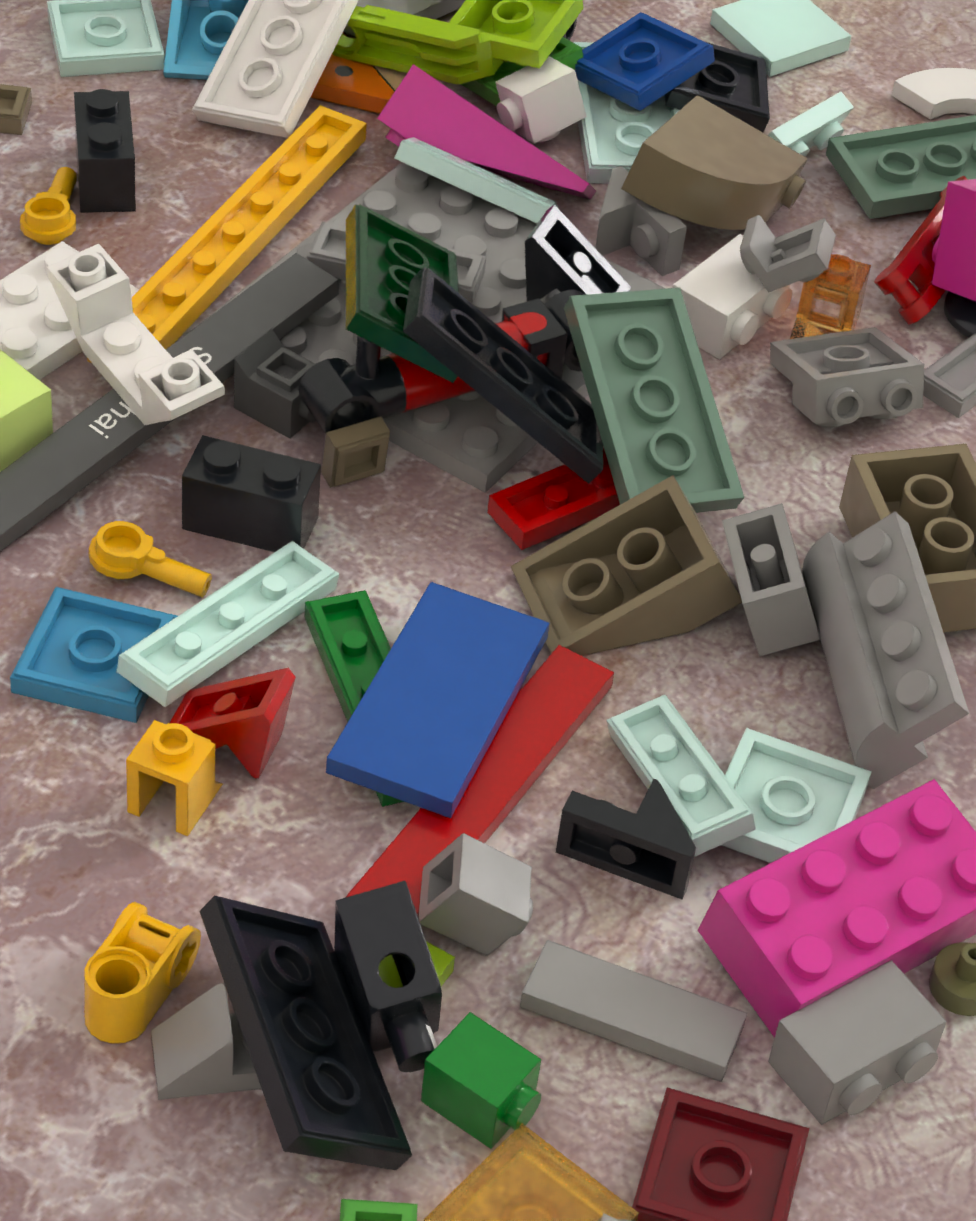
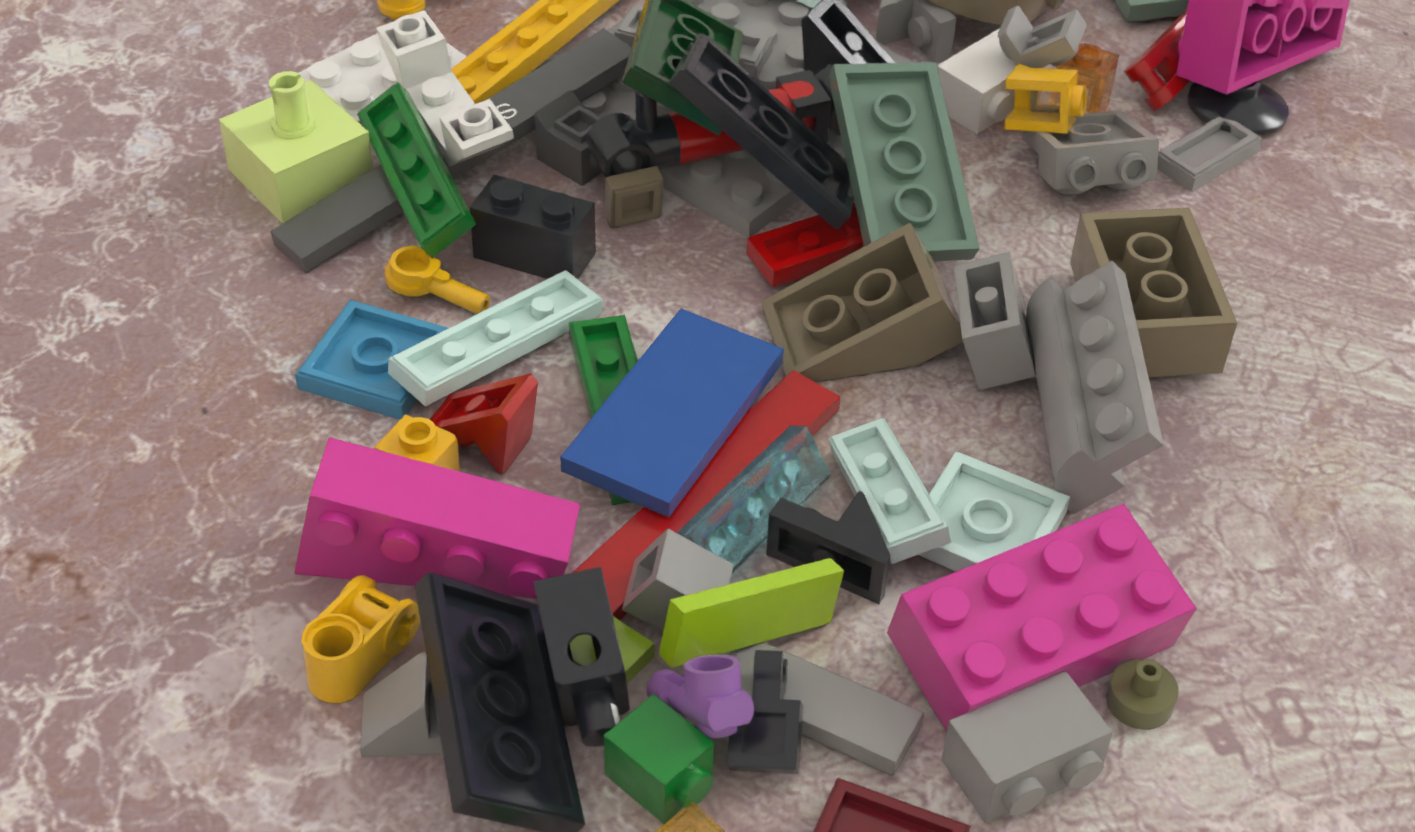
camera: 10 degrees right, 0 degrees up
(111, 432) = (416, 170): none -> green tile
(191, 837) = (411, 518): none -> dark pink wedge
(526, 1007) = (706, 694): none -> medium lavender plate
(530, 807) = (738, 516): none -> clear light blue plate
(557, 917) = (750, 611): none -> lime tile
(587, 1039) = (774, 734): none -> black plate
(795, 321) = (1045, 99): none -> yellow window

